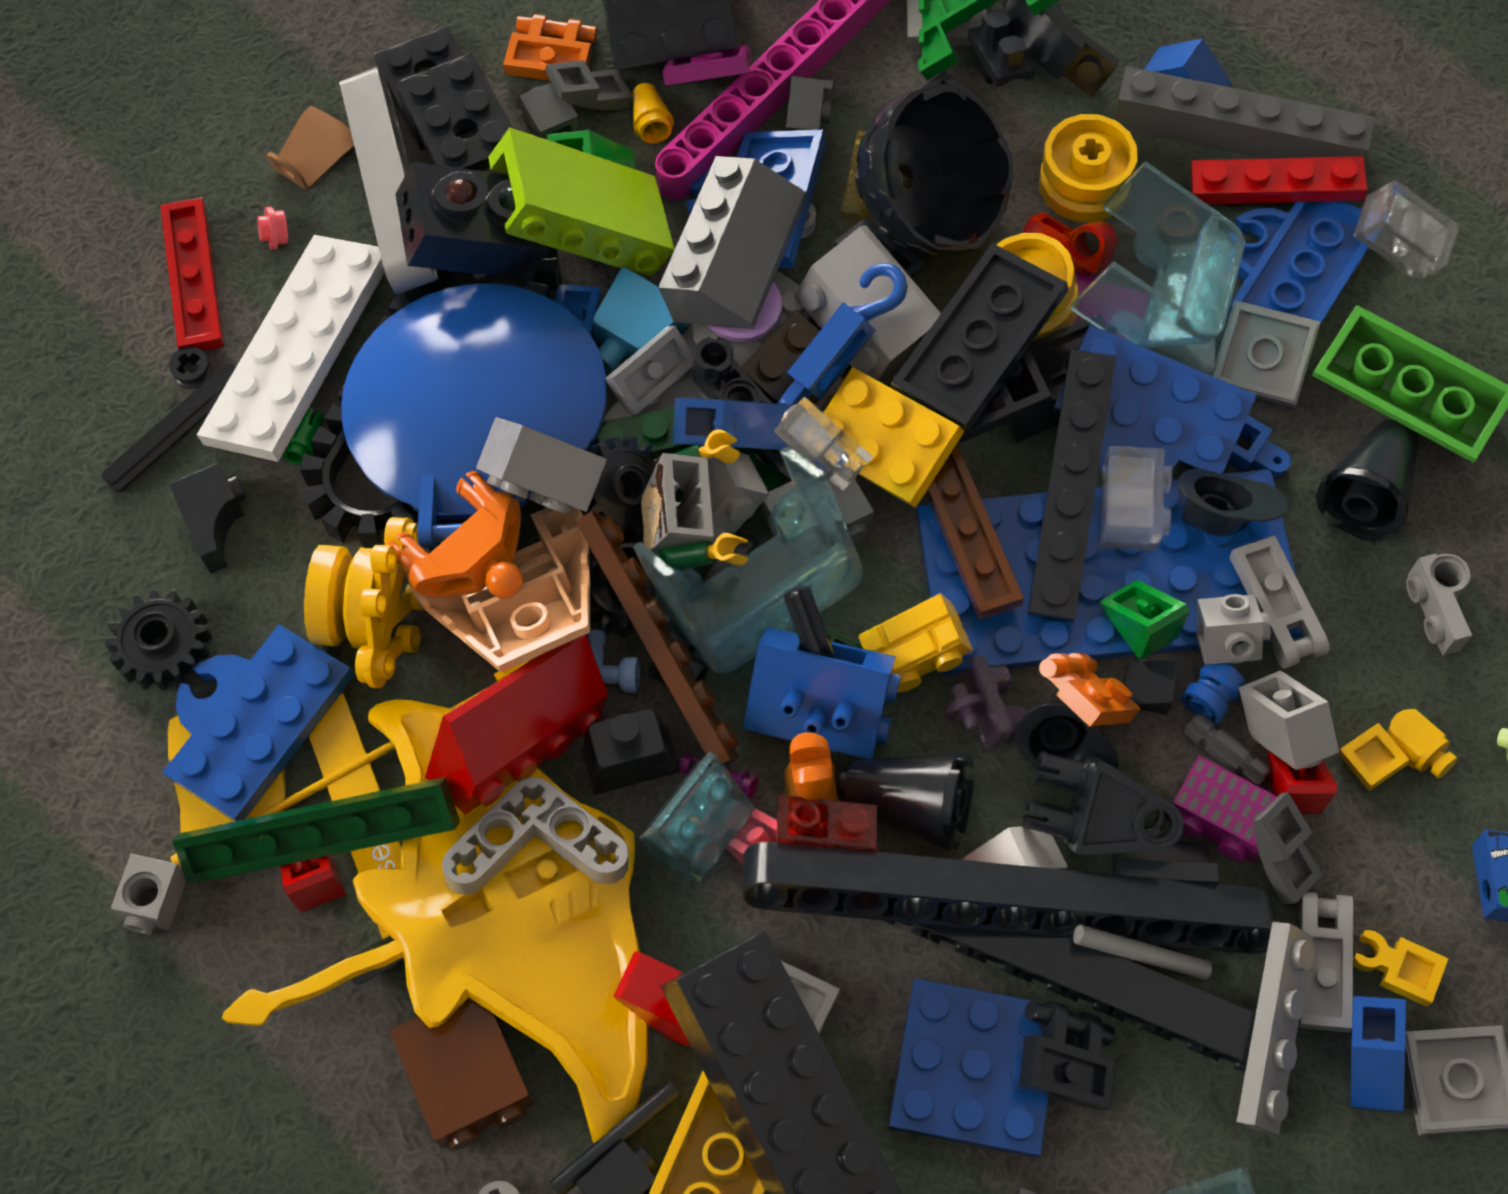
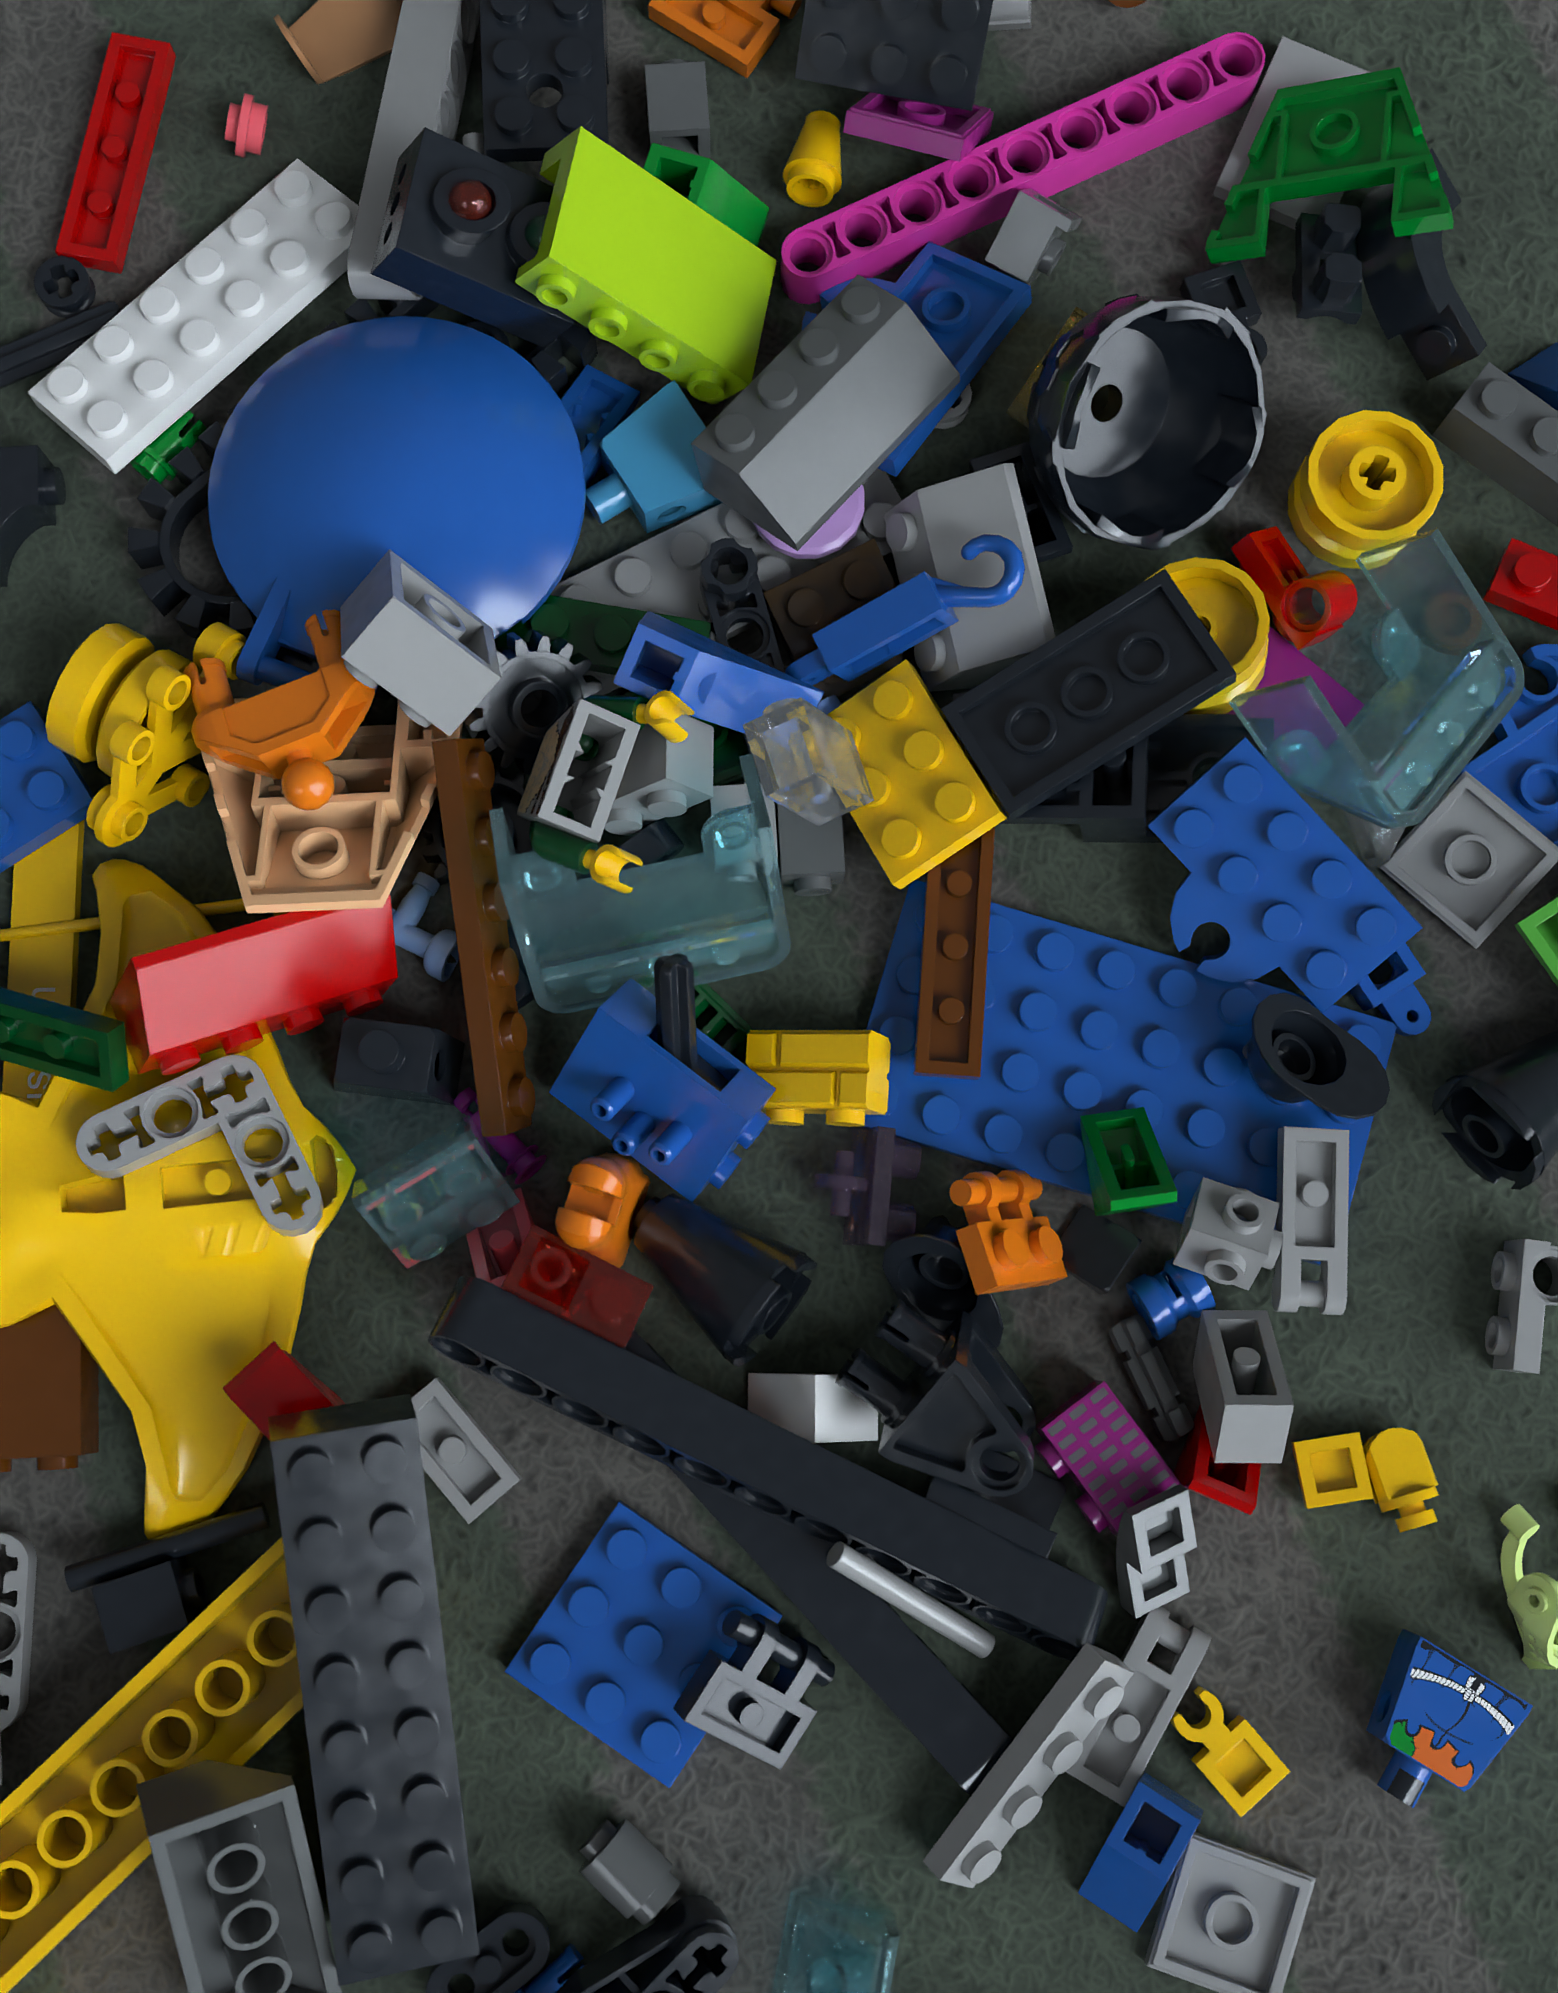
camera: 15 degrees right, 15 degrees up
(589, 89) = (745, 90): dark grey slope -> none
(651, 370) = (643, 549): light grey plate -> none
(1071, 486) = (1117, 947): black plate -> none
(1134, 498) = (1191, 1000): clear brick -> none

